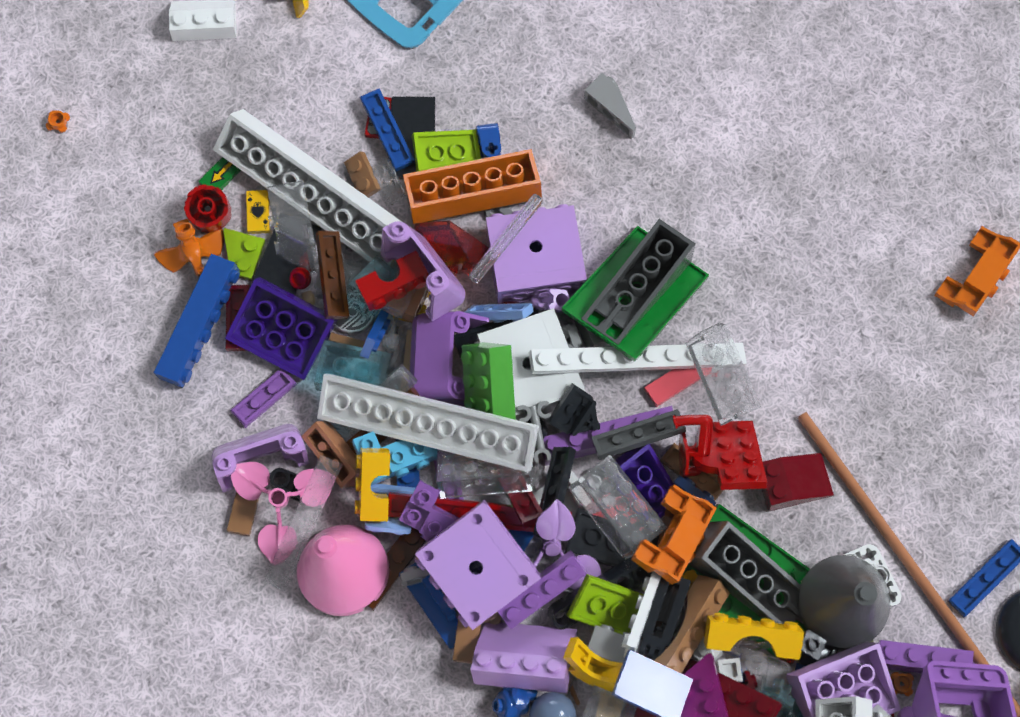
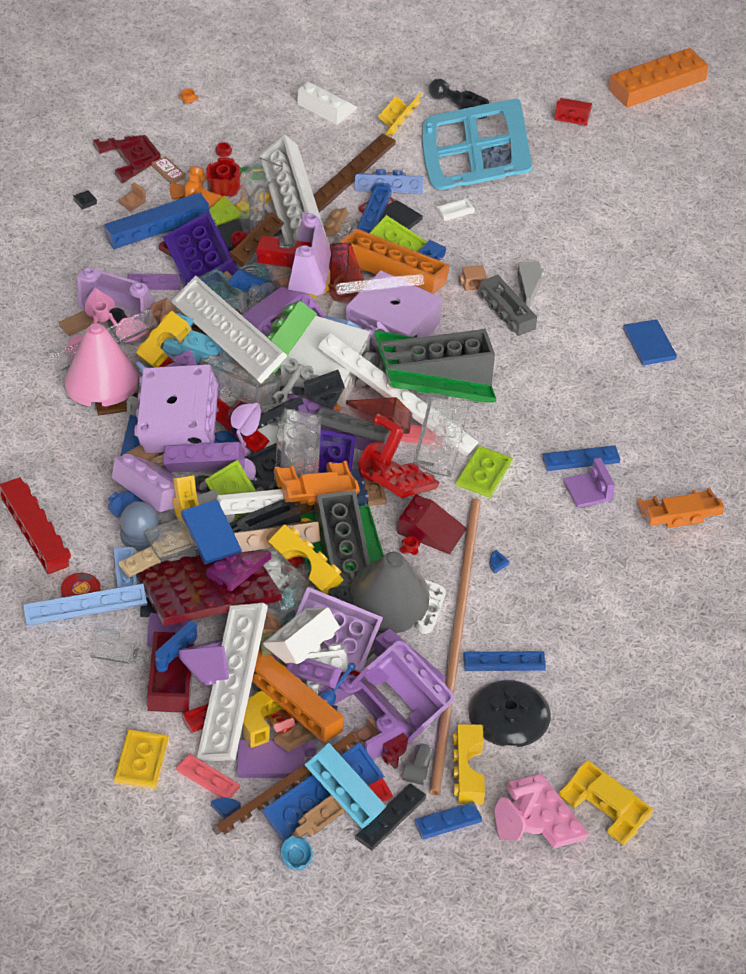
camera: 40 degrees right, 25 degrees down
(81, 241) = (136, 152): none -> dark red wing
(91, 347) = (85, 199): none -> black plate
(135, 238) = (168, 170): none -> tile
(139, 306) = (134, 198): none -> nougat bracket
(163, 166) = (223, 149): none -> red plate
(313, 90) = (358, 165): none -> reddish brown plate
(362, 76) = (396, 180): none -> bracket
(454, 61) = (455, 209): none -> white tile
(470, 287) = (337, 310): none -> white tile
(556, 140) = (471, 277): none -> nougat brick
(586, 146) = (507, 305): none -> dark grey brick
(649, 395) = (389, 408): none -> clear red slope
(775, 86) = (650, 342): none -> blue tile
(776, 372) = (484, 471): none -> lime tile
(801, 521) = (410, 545): none -> red plate
(842, 282) = (580, 458): none -> blue plate
(882, 469) = (498, 561): none -> blue tile
(883, 312) = (591, 487): none -> medium lavender bracket

